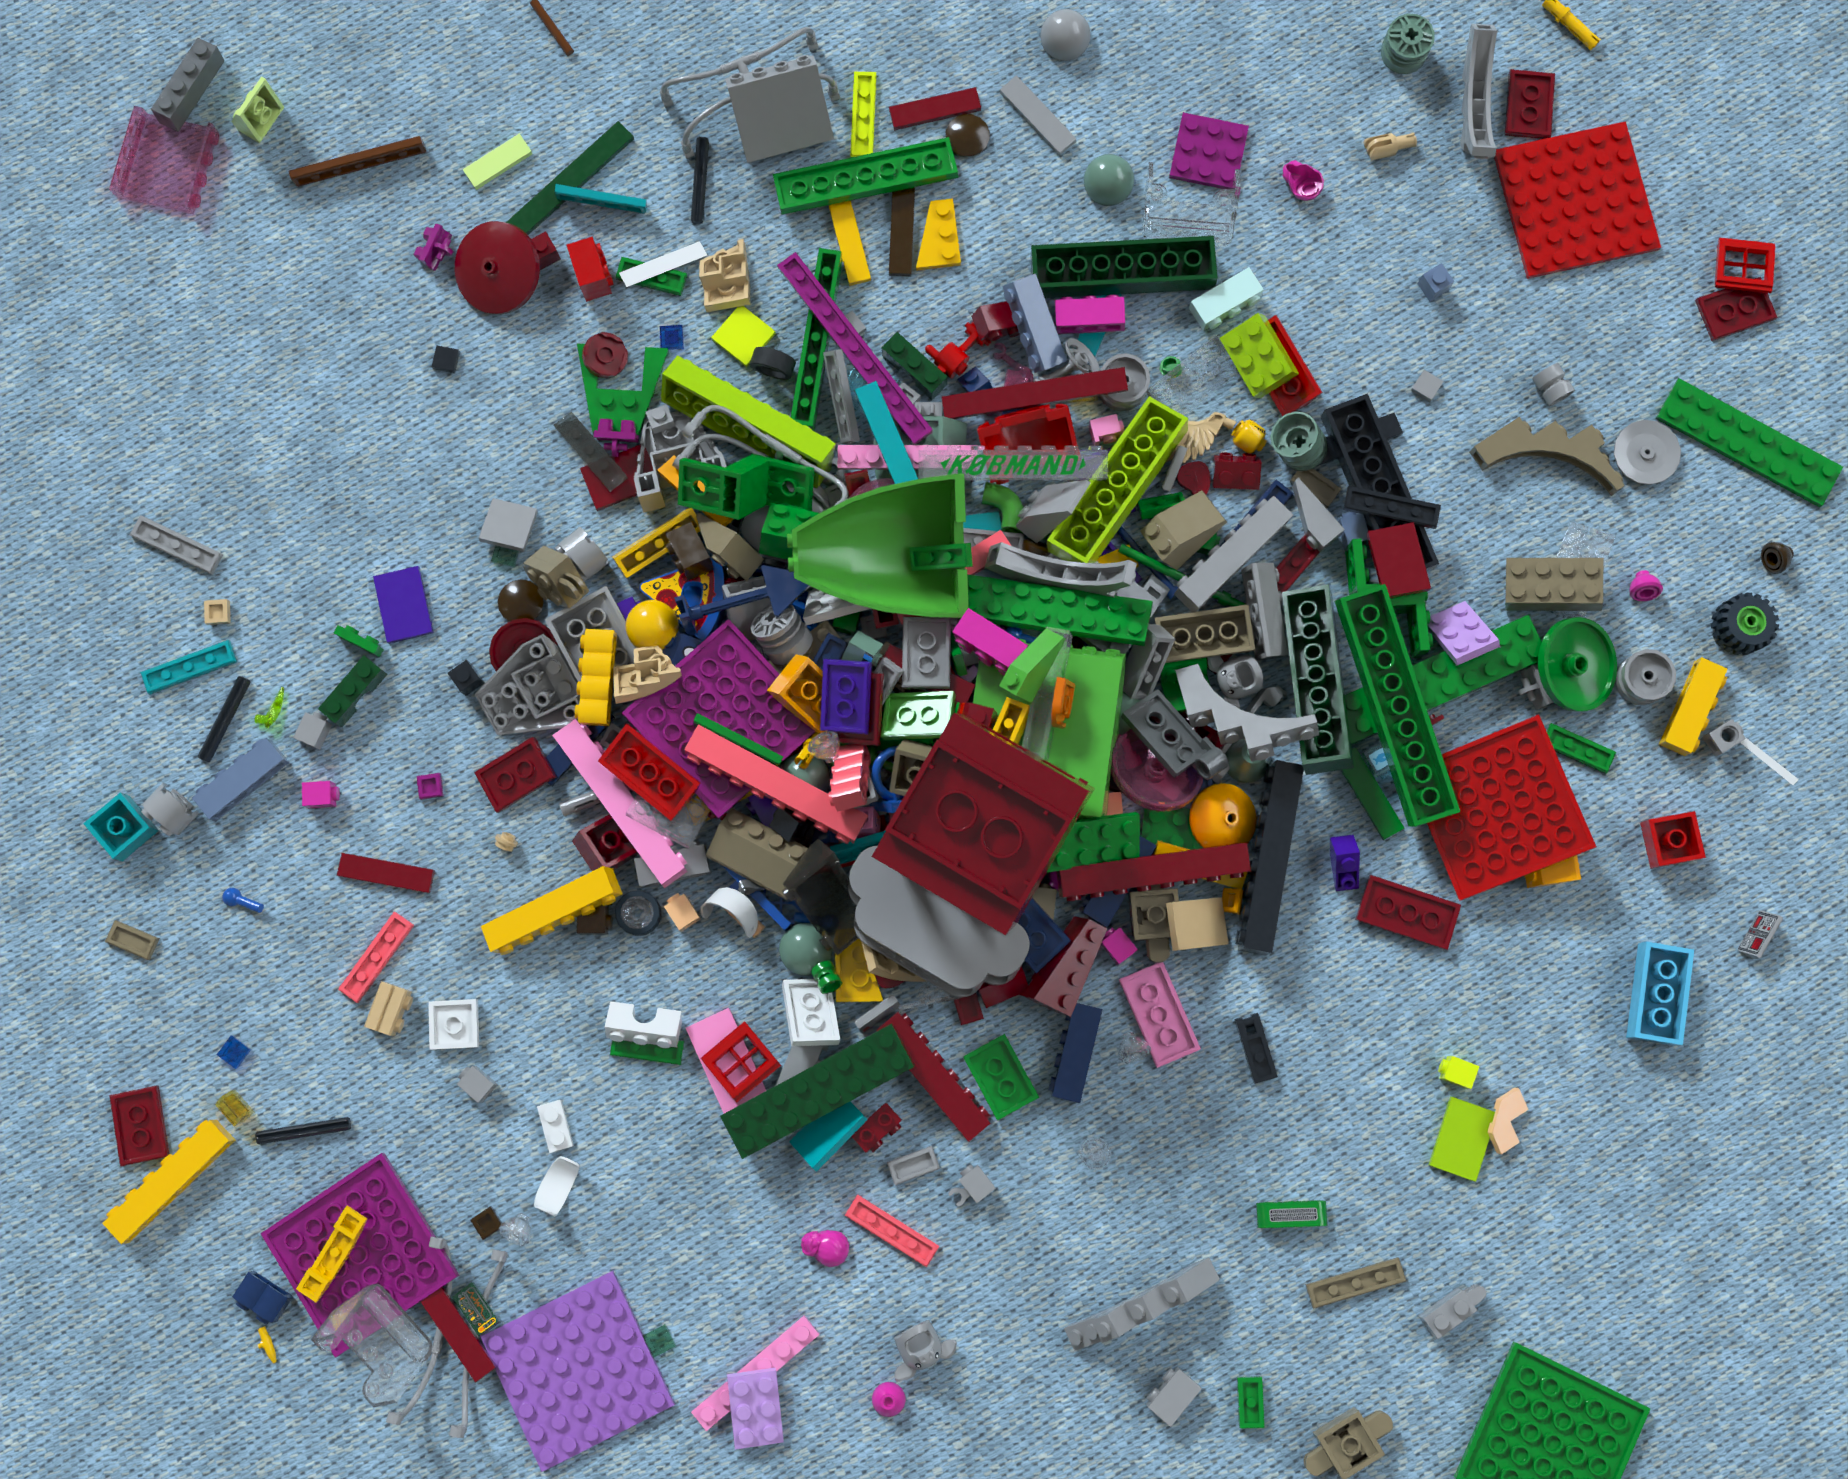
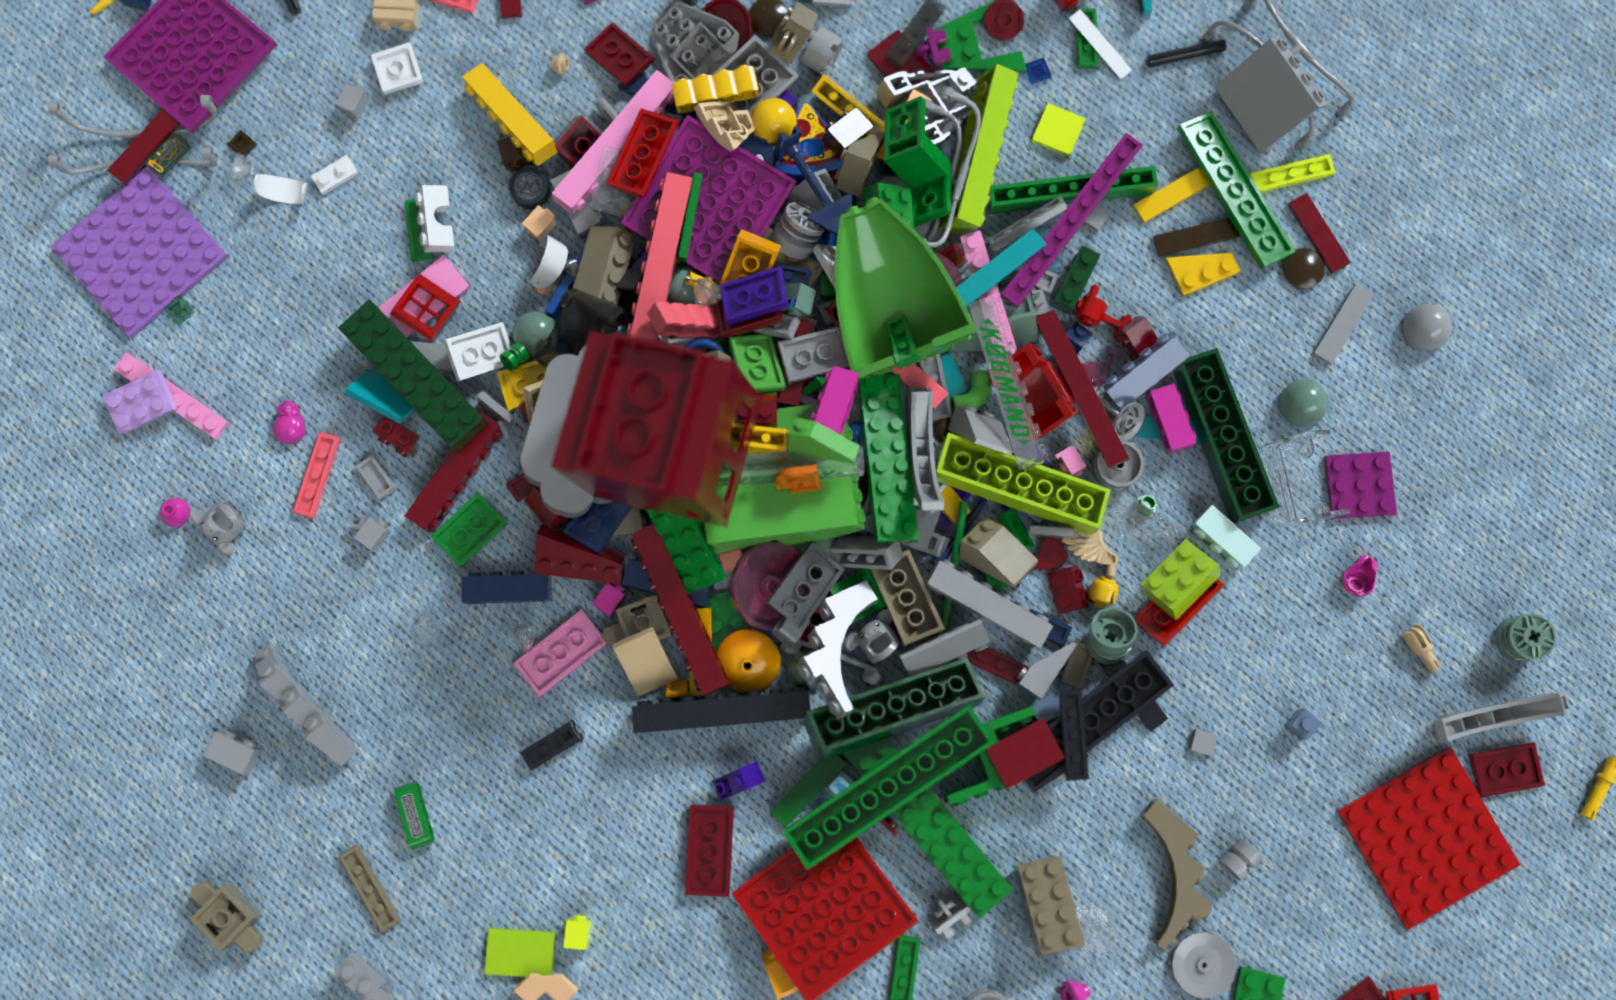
camera: 70 degrees right, 0 degrees up
(333, 1254) = (181, 28): yellow slope -> none
(381, 1338) = (124, 84): clear windscreen -> none
(725, 278) = (1104, 100): tan slope -> none
(772, 363) = (1039, 158): black tyre -> none
(1250, 1402) = (243, 821): green plate -> none
(1462, 633) = (977, 831): lavender plate -> none
(1577, 664) = (980, 947): green dish -> none

